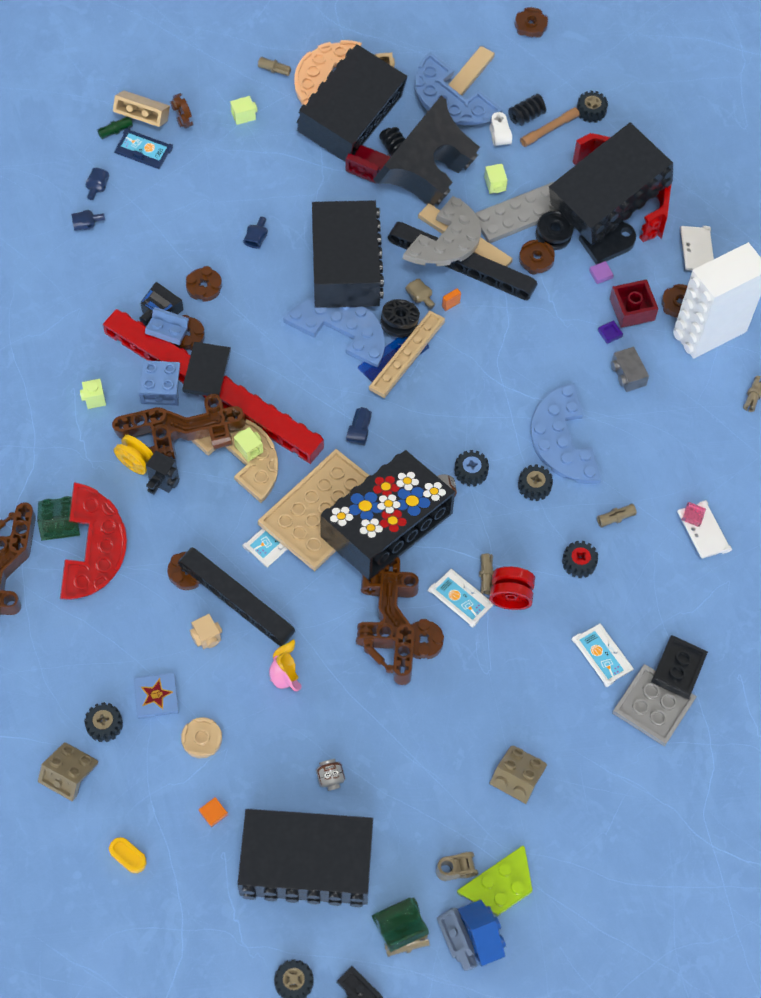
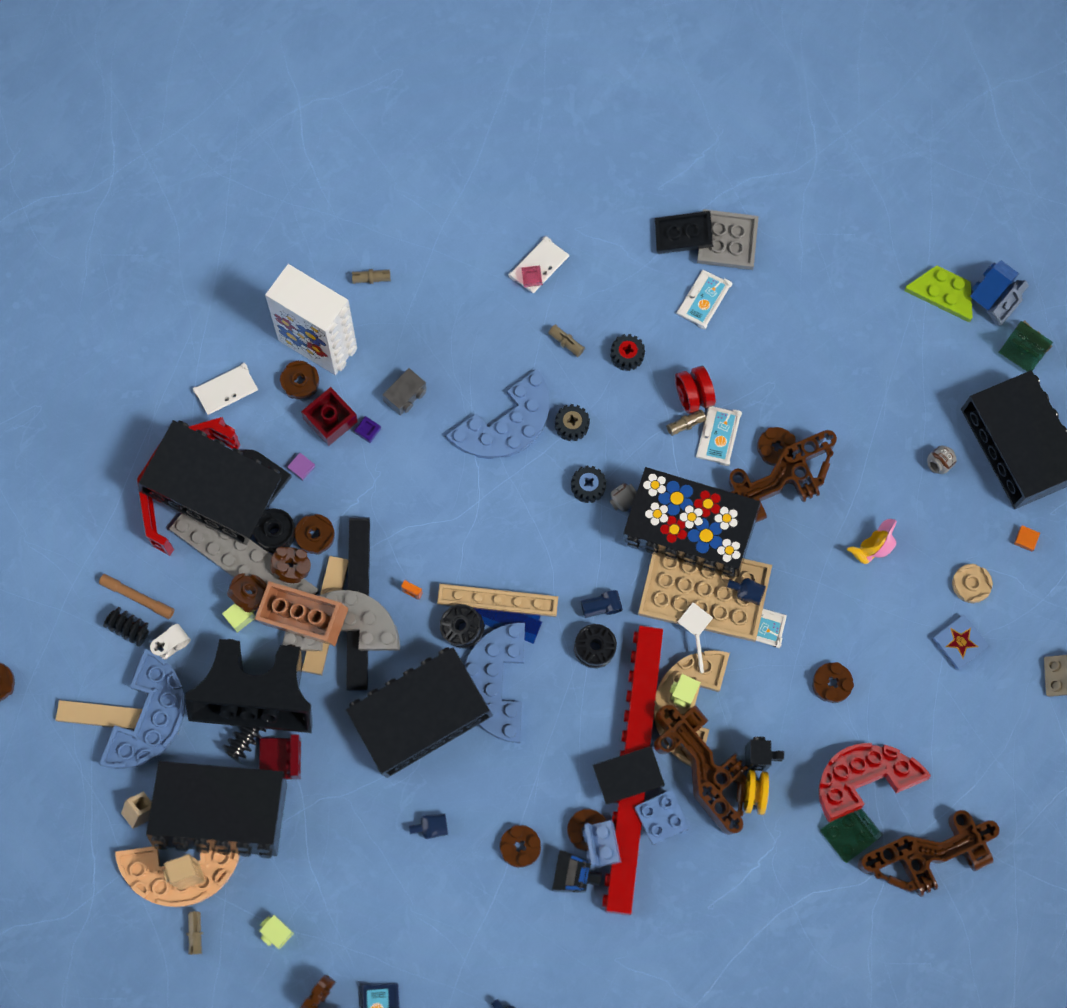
camera: 120 degrees left, 10 degrees up
(93, 393) = (710, 878): yellowish green brick -> none
(105, 729) = (1005, 671): black wheel -> none
(205, 632) = (882, 630): tan brick -> none
(236, 596) = (837, 621): black beam -> none
(301, 484) = (695, 621): none -> white piece
(302, 534) = (748, 590): none -> dark blue piece
(315, 59) = (183, 872): none -> tan brick
(324, 395) = (595, 658): none -> black wheel
(420, 292) = (418, 624): dark tan piece -> none
(461, 866) = (951, 325): dark tan piece -> none
(469, 205) = (301, 613): none -> nougat brick
(500, 180) = (240, 597): none -> reddish brown plate
(509, 229) = (291, 555): none -> reddish brown plate
(518, 773) = (848, 315): dark tan bracket -> none
(592, 106) = (85, 558): black wheel -> none

